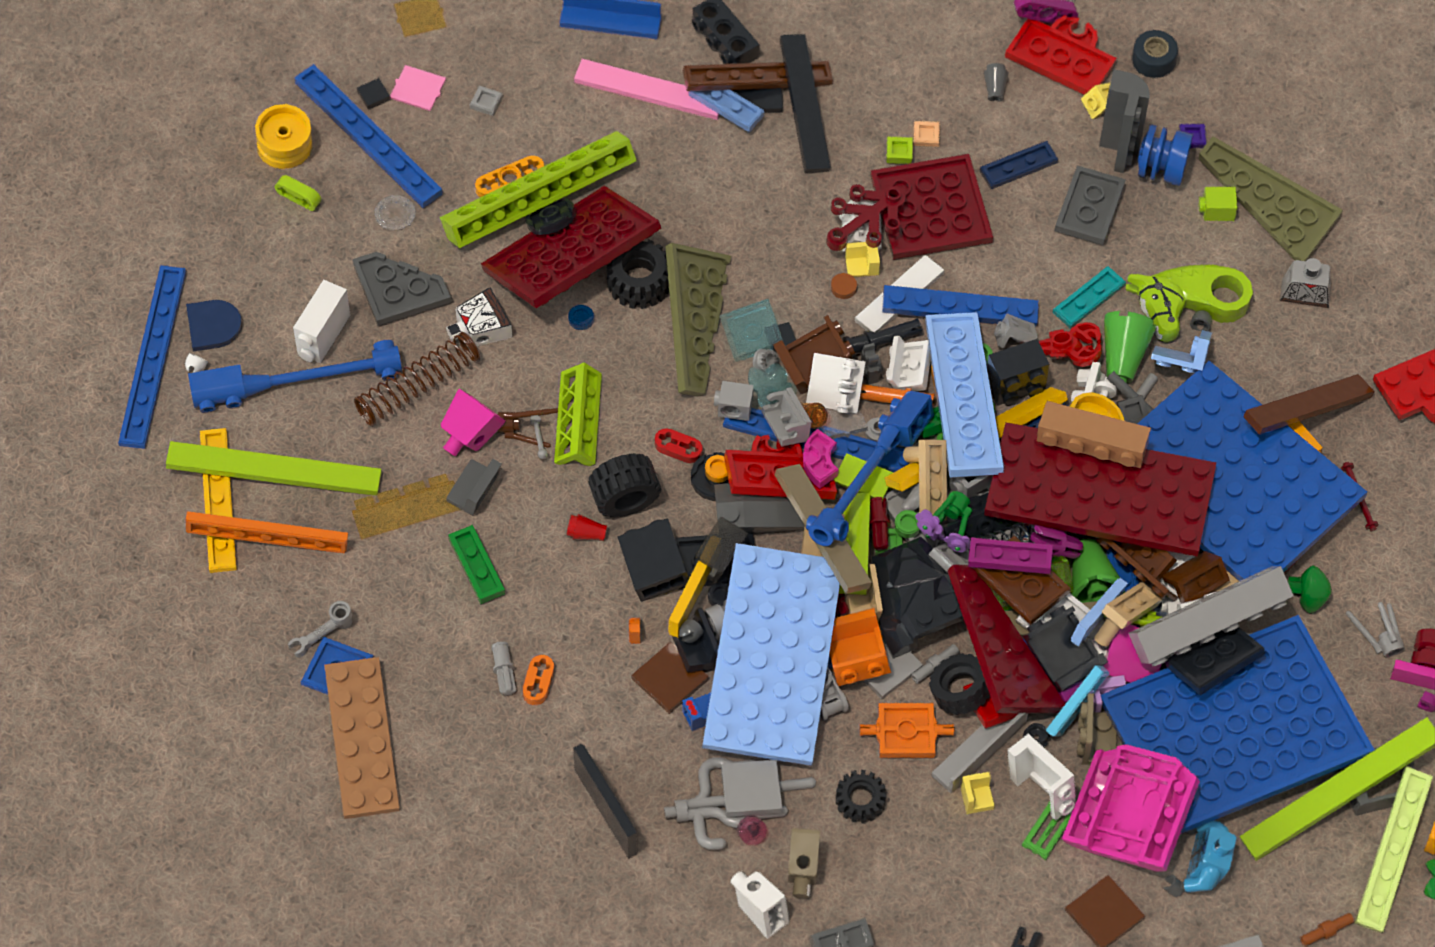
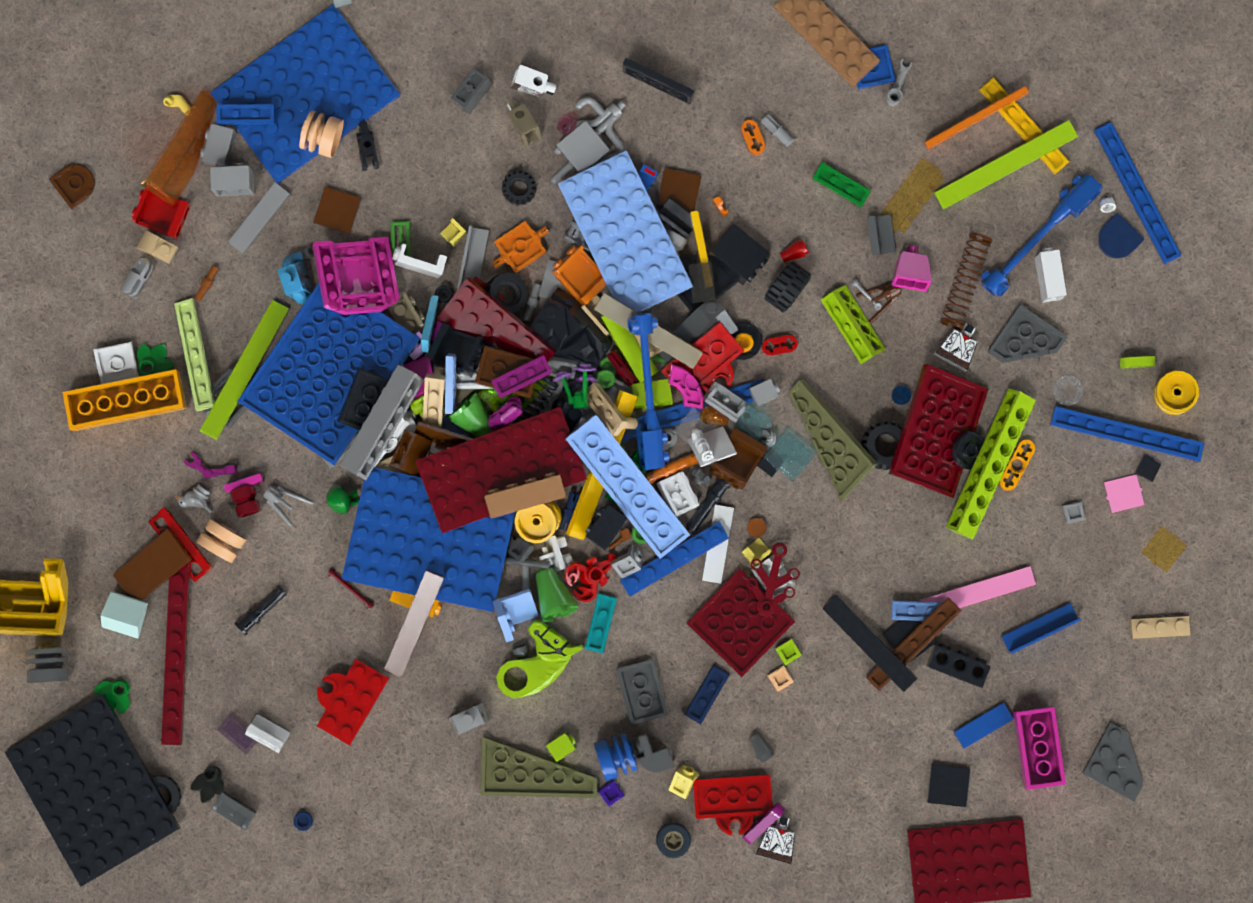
camera: 145 degrees right, 25 degrees up
(690, 631) = (683, 217): dark grey hinge -> none

